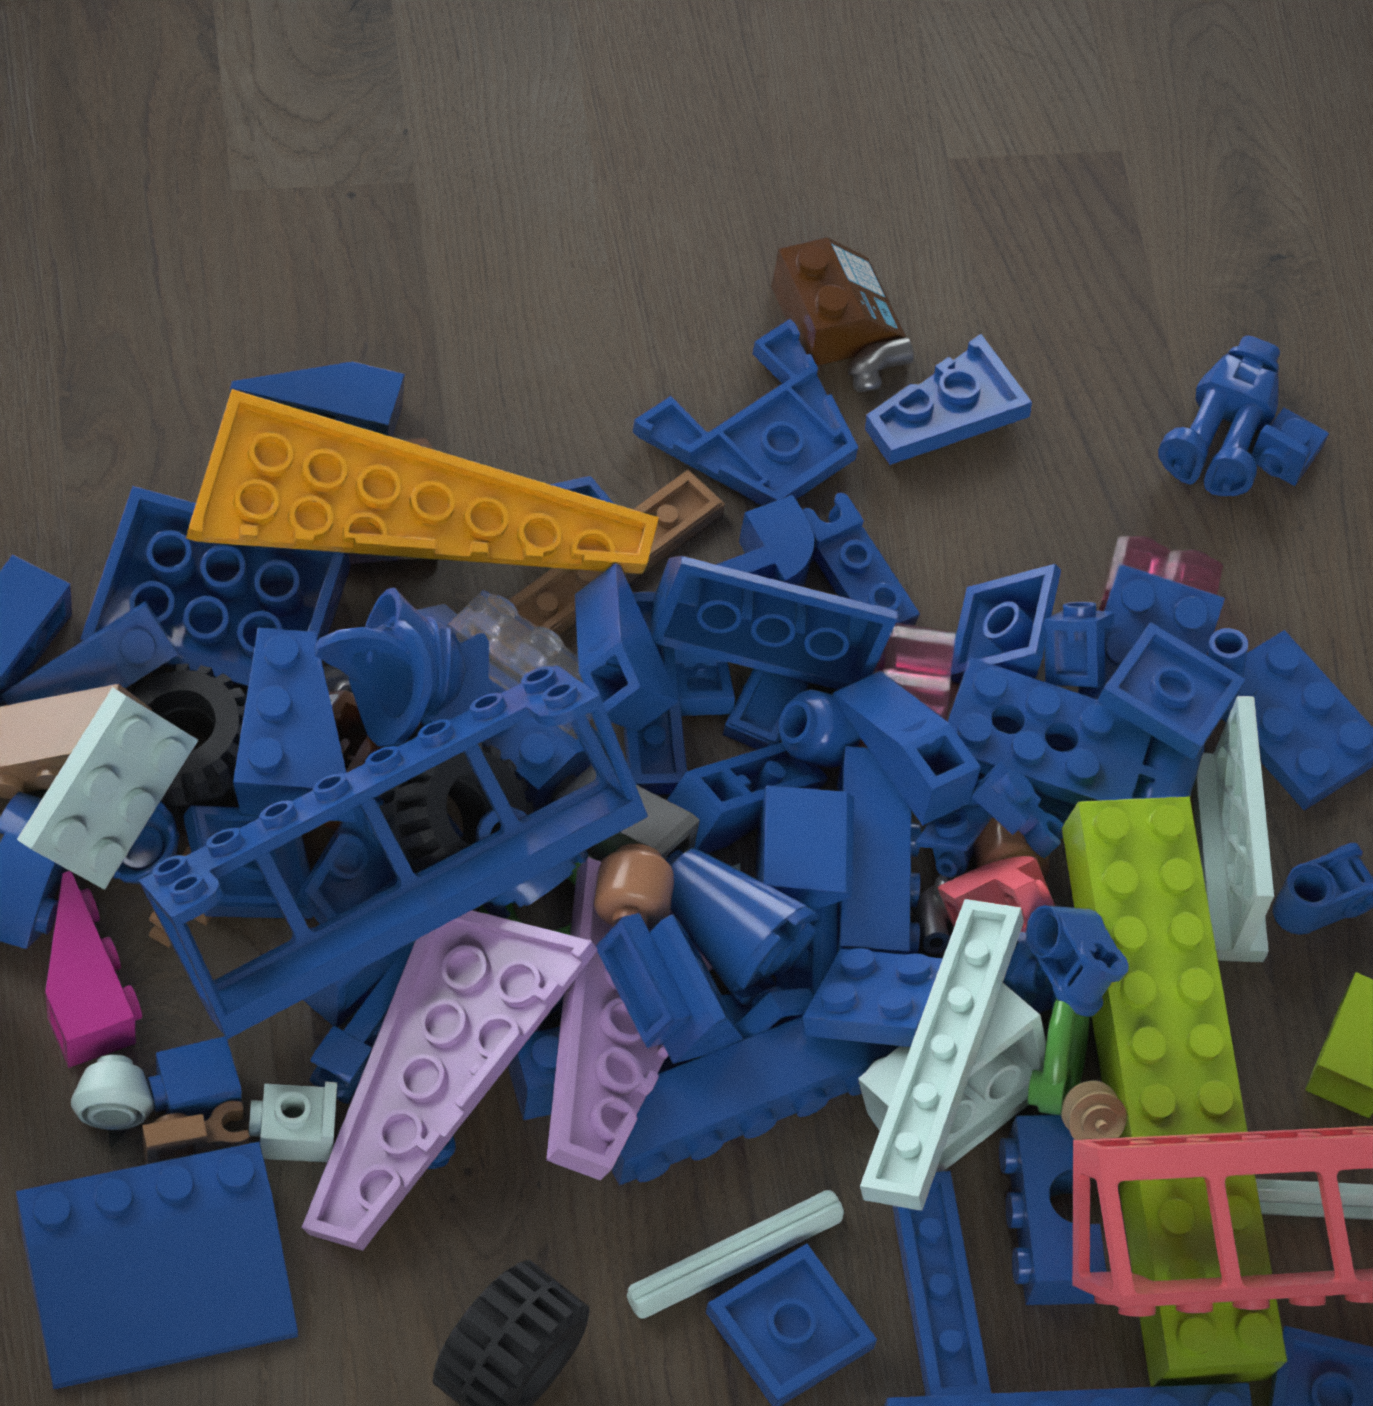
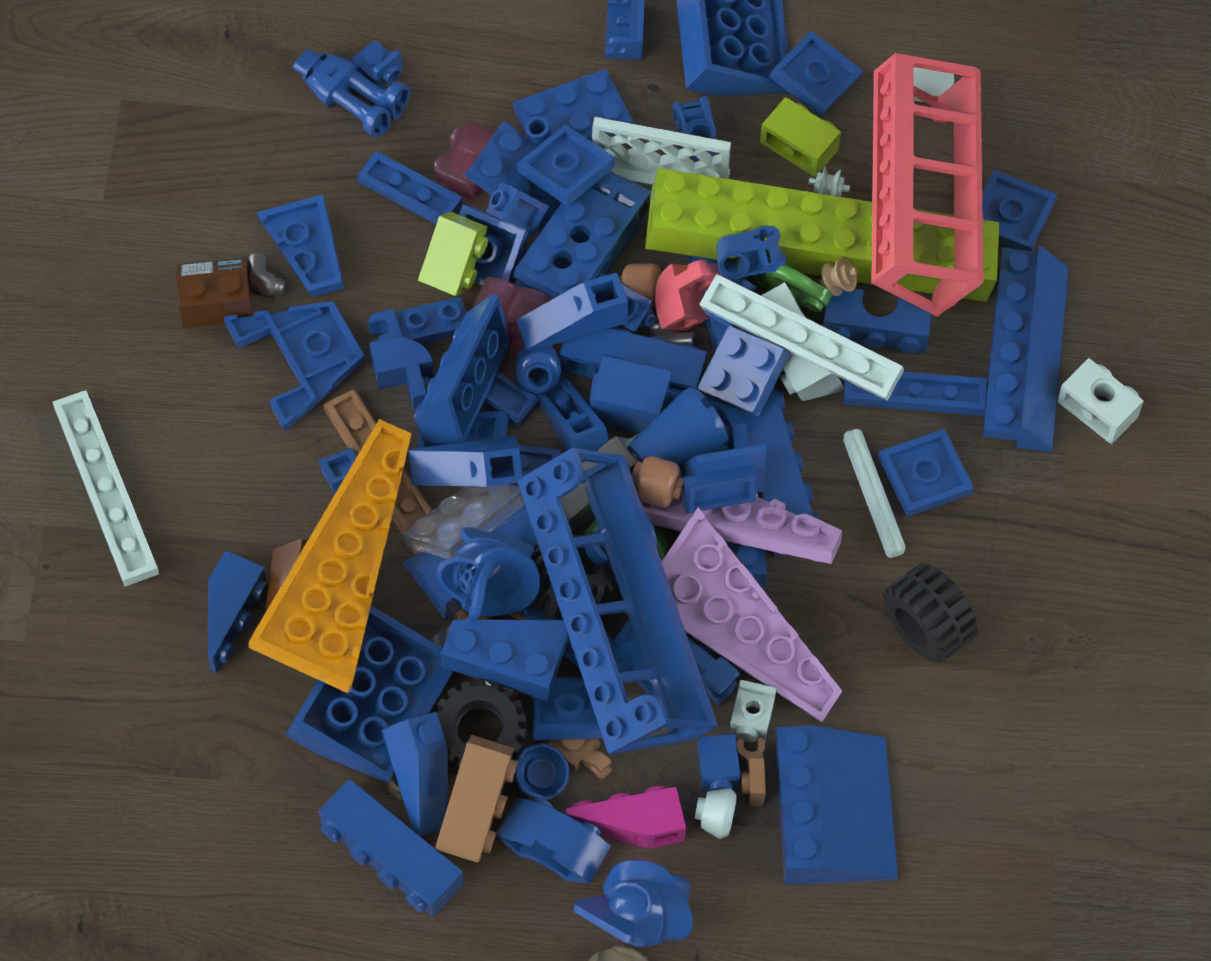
camera: 70 degrees left, 5 degrees up
(107, 789) = (533, 764): light aqua plate -> none
(481, 232) = (105, 488): none -> light aqua plate
(977, 576) = (453, 254): none -> lime brick
(1015, 806) = (631, 267): blue plate -> none
(1085, 516) = (408, 188): none -> blue plate
(1287, 1100) = (829, 184): none -> light aqua wheel

